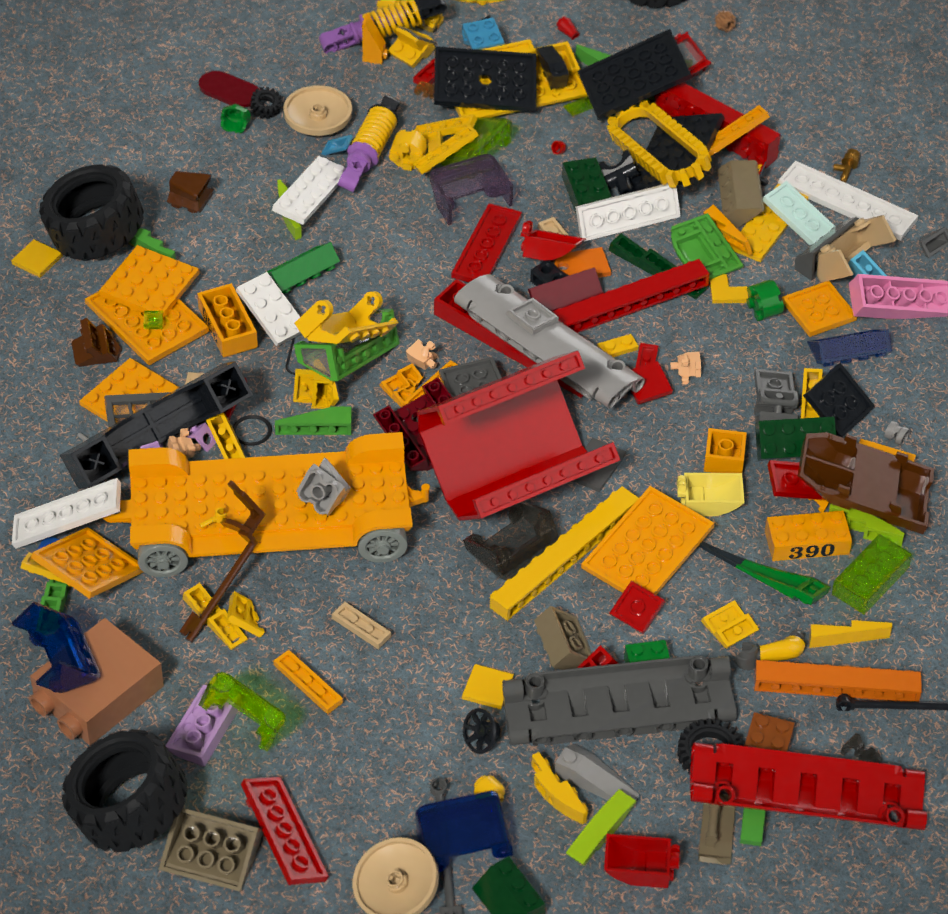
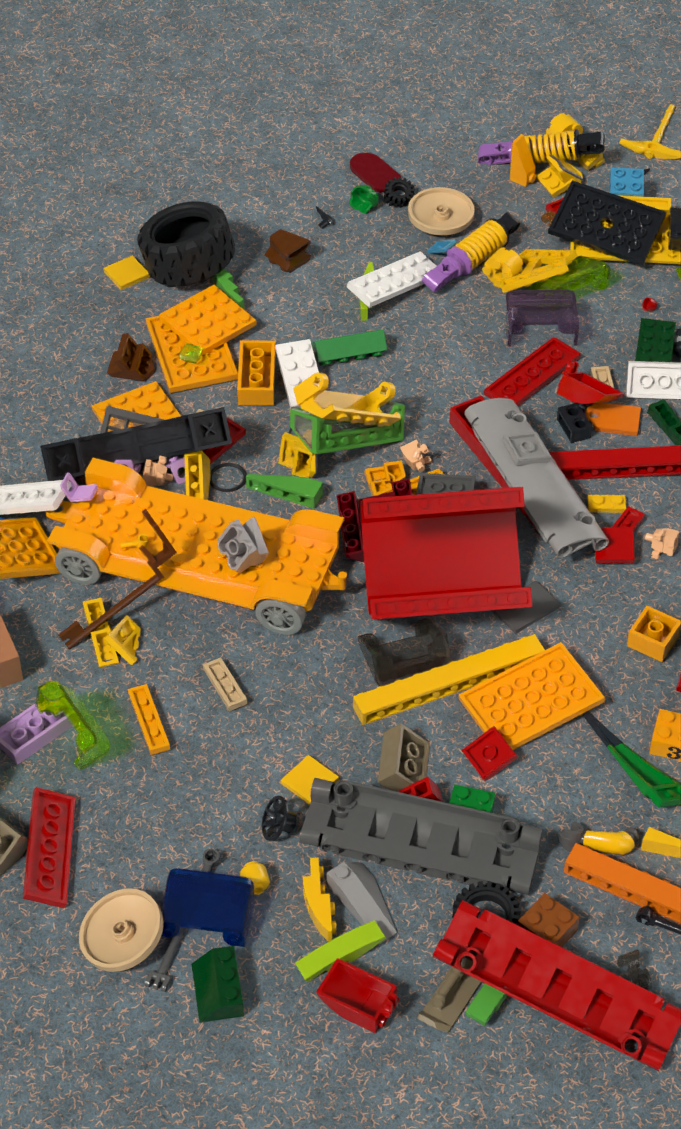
camera: 25 degrees right, 0 degrees up
(132, 487) = (78, 493): none -> lavender bracket
(205, 147) = (325, 217): none -> black bar
(567, 290) = (580, 436): dark red tile -> none
(711, 492) = (617, 667): light yellow piece -> none
(730, 624) = (573, 800): yellow slope -> none

